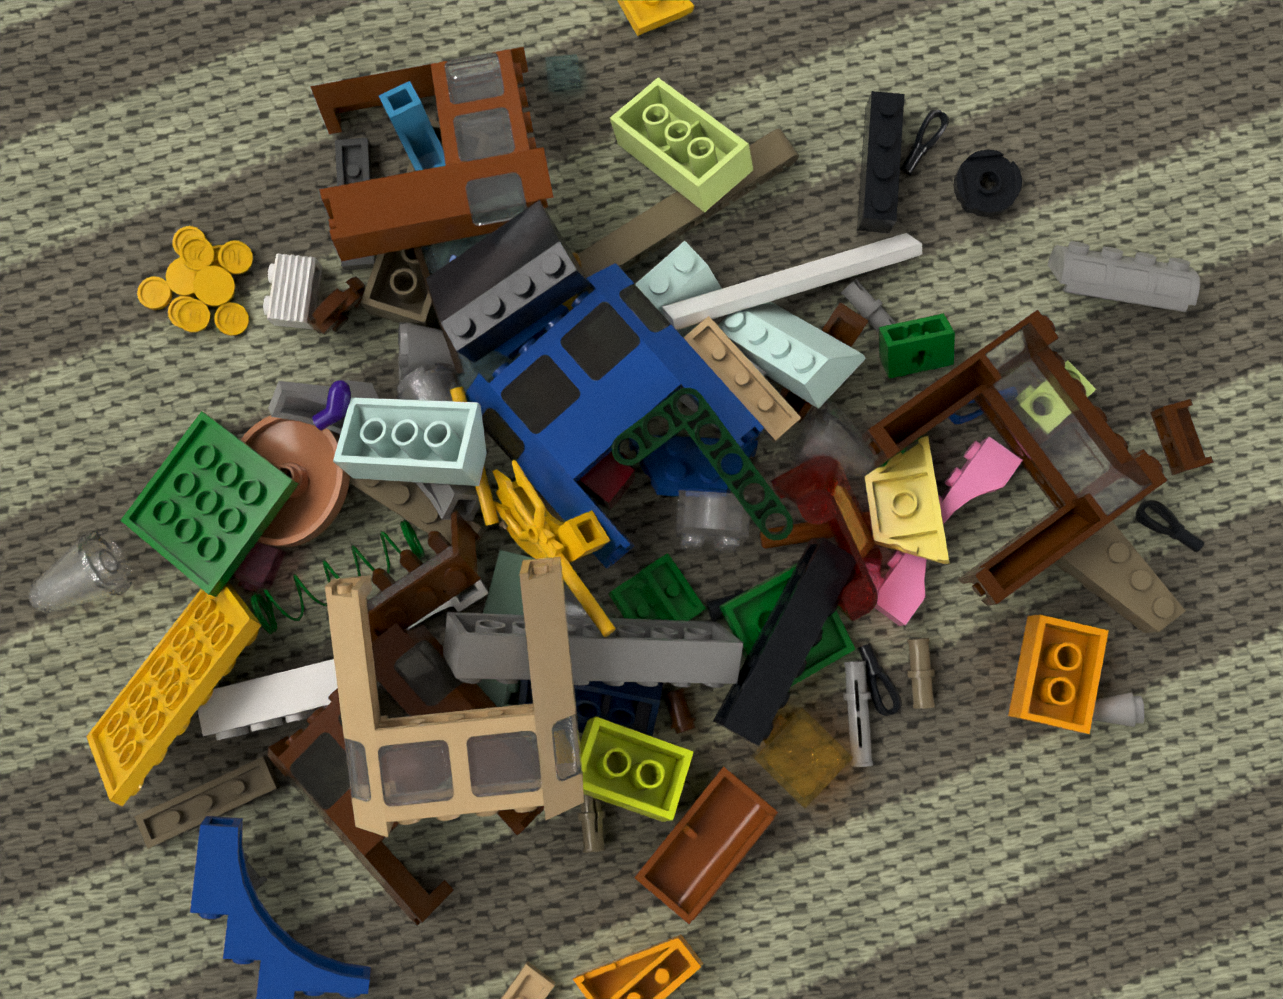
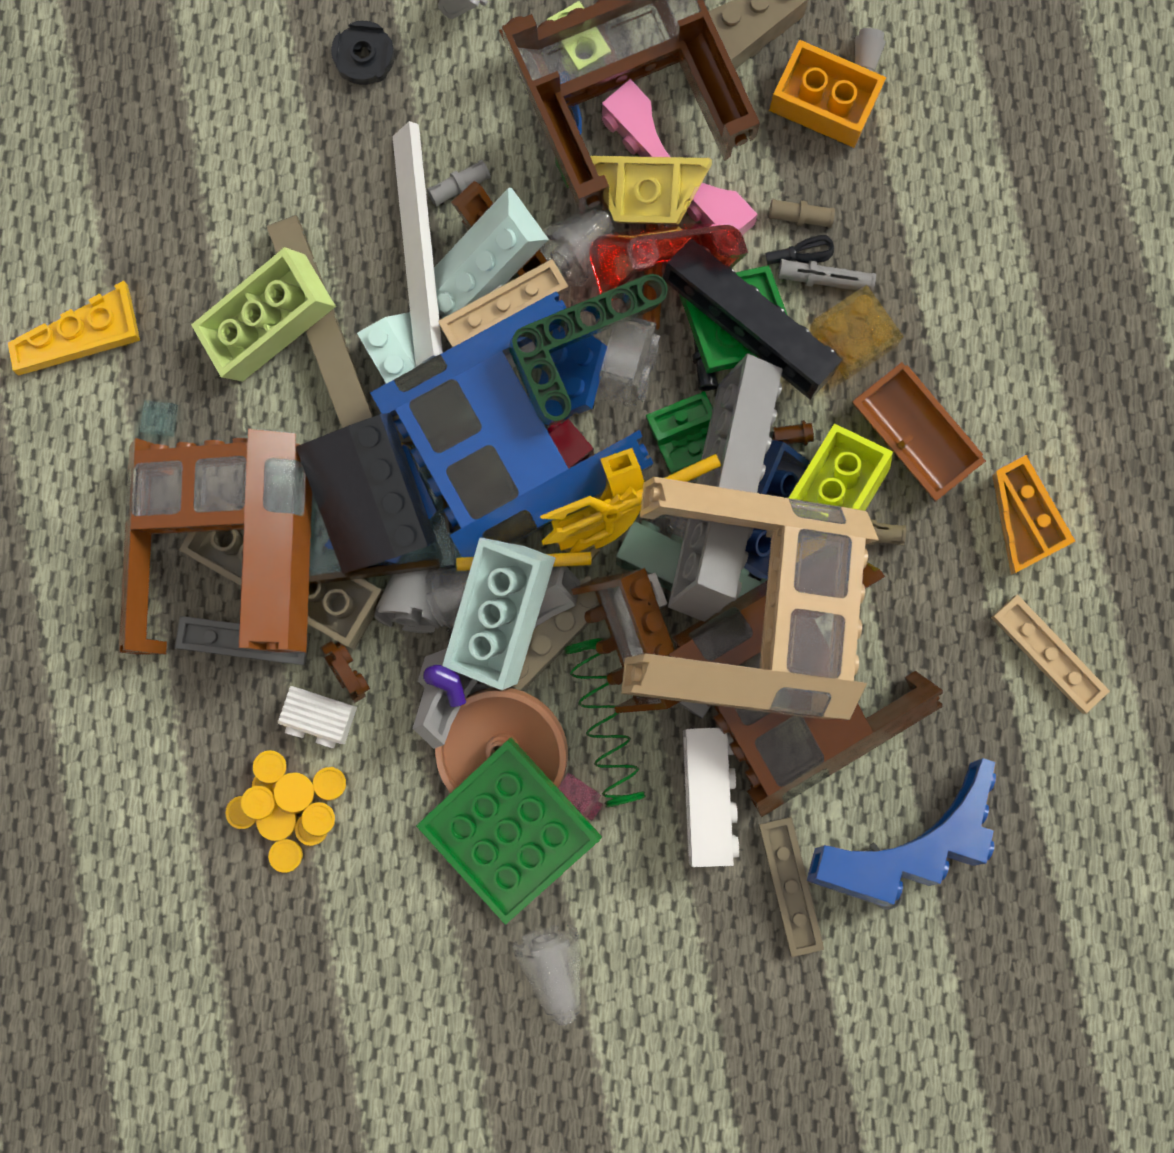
camera: 70 degrees left, 0 degrees up
(170, 689) = (680, 892): yellow plate -> none
(413, 127) = (197, 556): dark azure arch -> none
(880, 162) = (321, 142): black brick -> none
(916, 345) = (503, 148): green brick -> none
(920, 150) = (315, 107): black piece -> none

